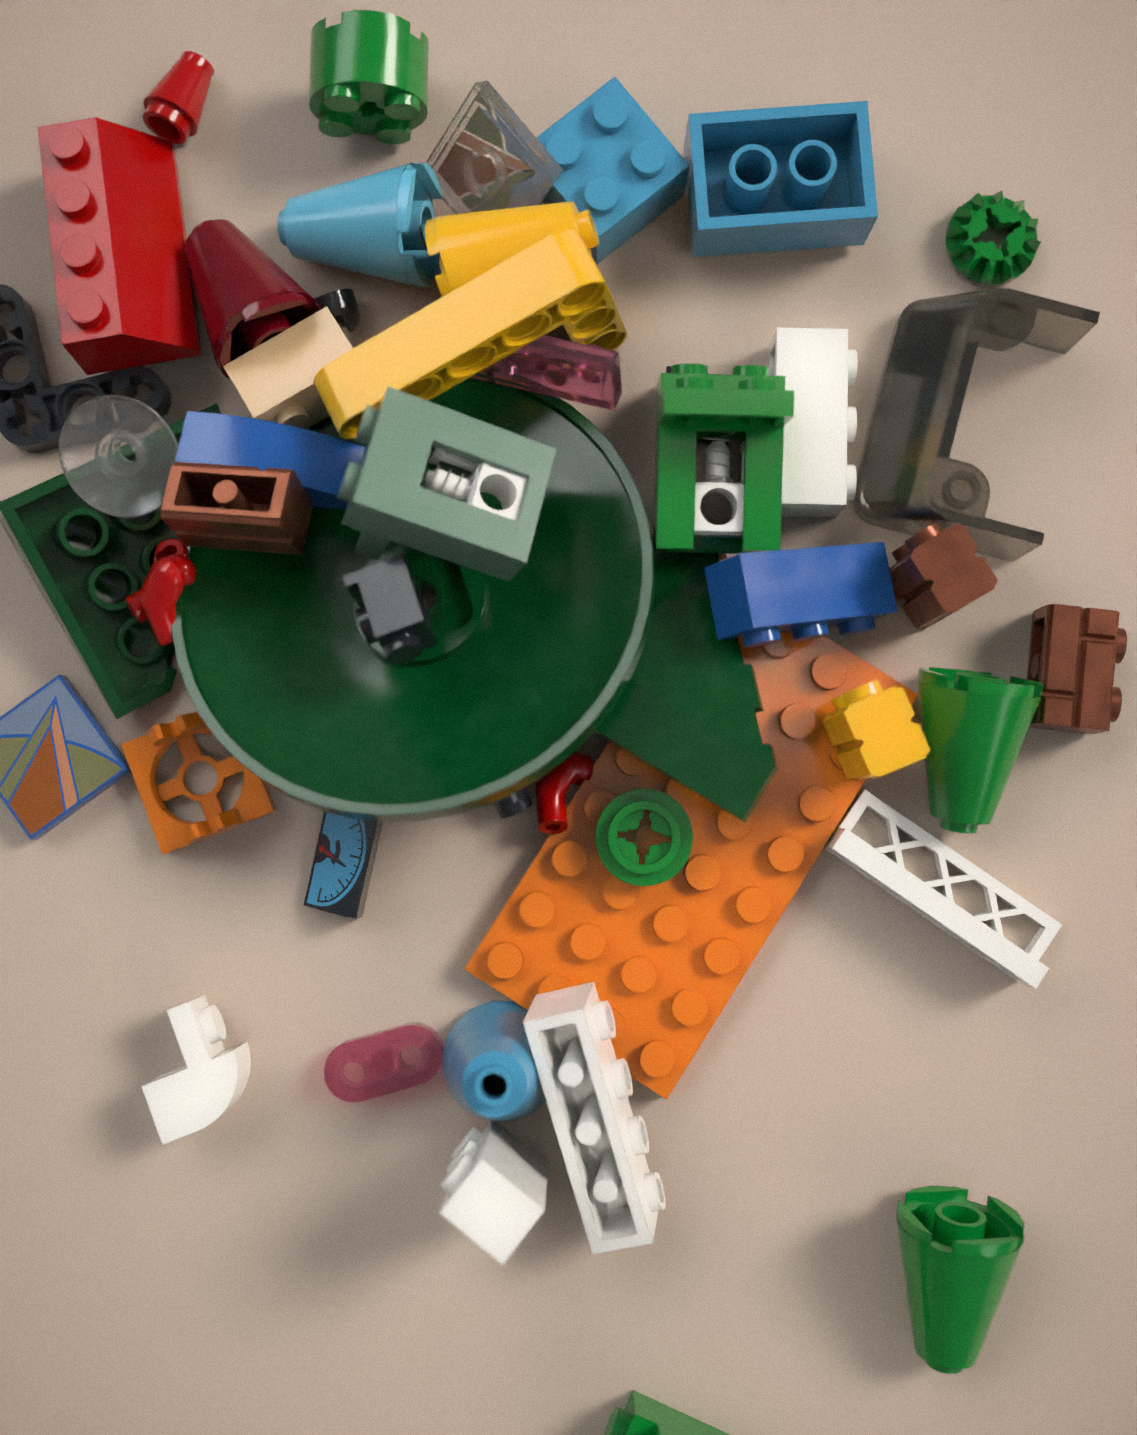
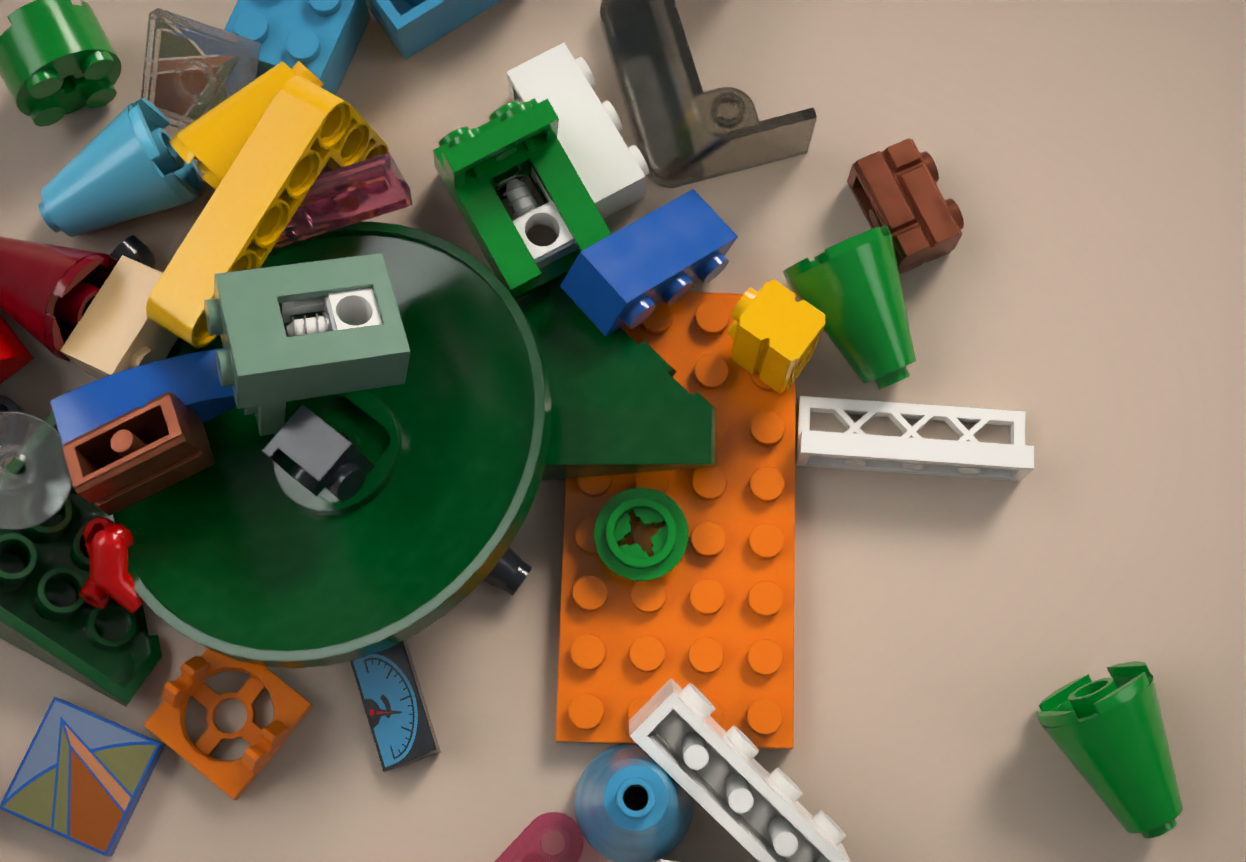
camera: 35 degrees left, 10 degrees down
(552, 790) = (540, 541): red arm -> none
(939, 574) = (752, 188): copper brick -> none

